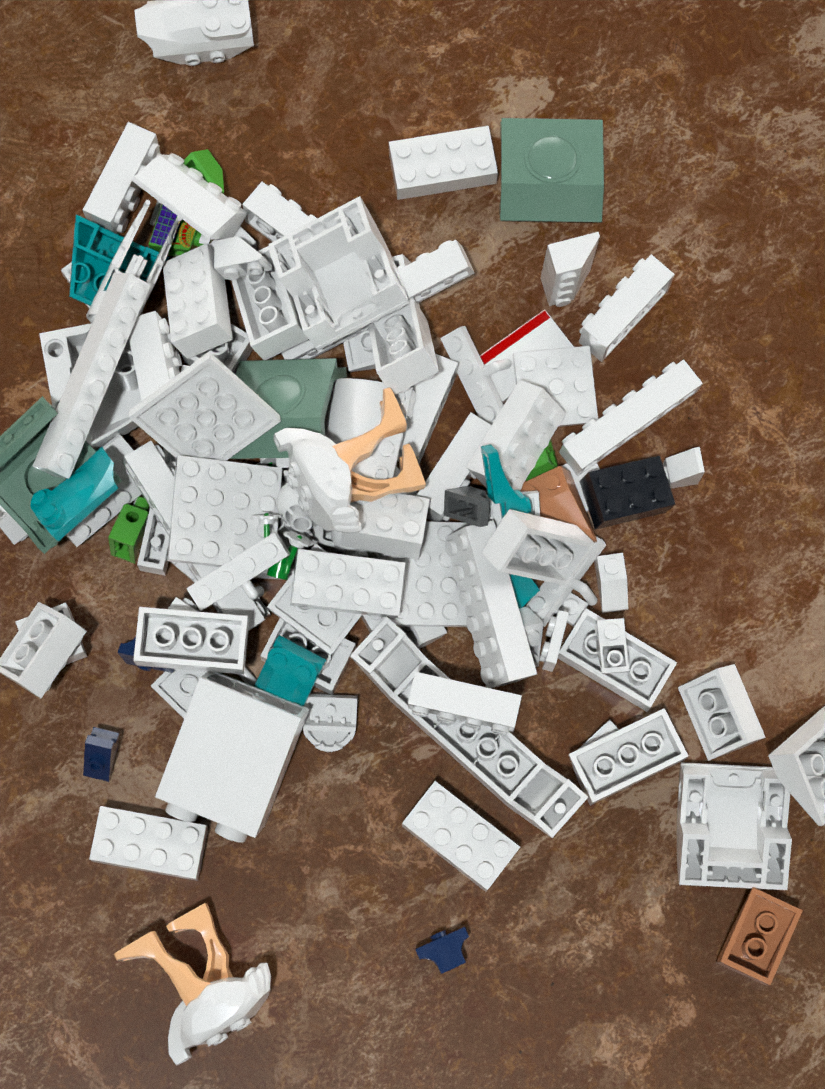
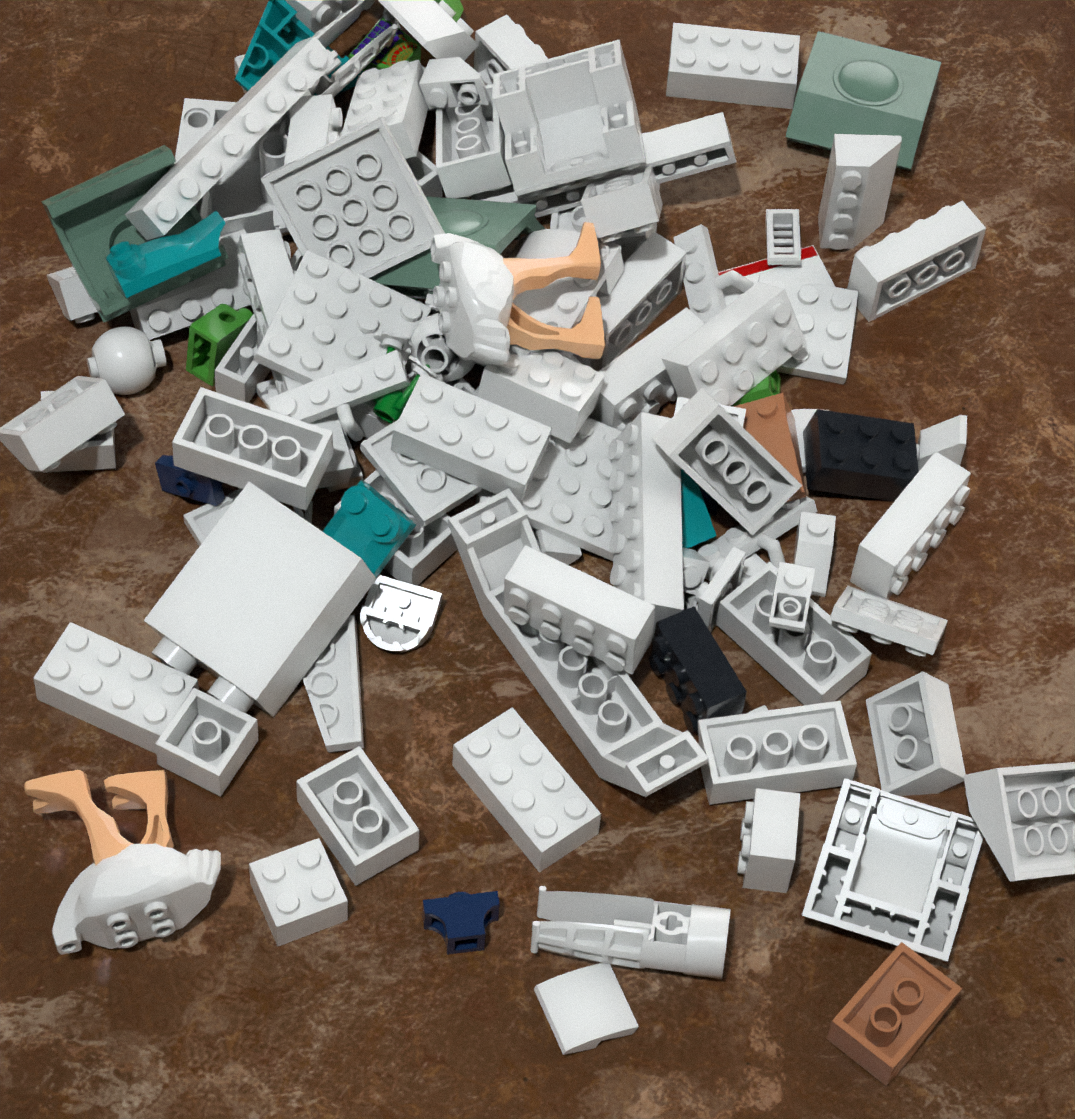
camera: 15 degrees right, 20 degrees down
(66, 567) = (126, 359): none -> white brick
(100, 753) = (91, 571): dark blue brick -> none
(227, 868) = (207, 741): none -> white brick
(304, 796) = (336, 690): none -> white wing
(326, 964) = (298, 892): none -> white brick
(350, 894) = (357, 815): none -> white brick
(467, 505) = (649, 395): dark grey arch -> none
(498, 486) = (696, 367): teal slope -> none
(516, 294) = (783, 220): none -> white slope
(547, 990) = (585, 1008): none -> white slope
(556, 712) = (695, 669): none -> black brick
(611, 917) = (632, 931): none -> white piece
(630, 417) = (889, 377): white brick -> none
(641, 830) = (769, 840): none -> white brick
(678, 542) = (911, 527): none -> white brick
(682, 629) = (888, 621): none -> white plate

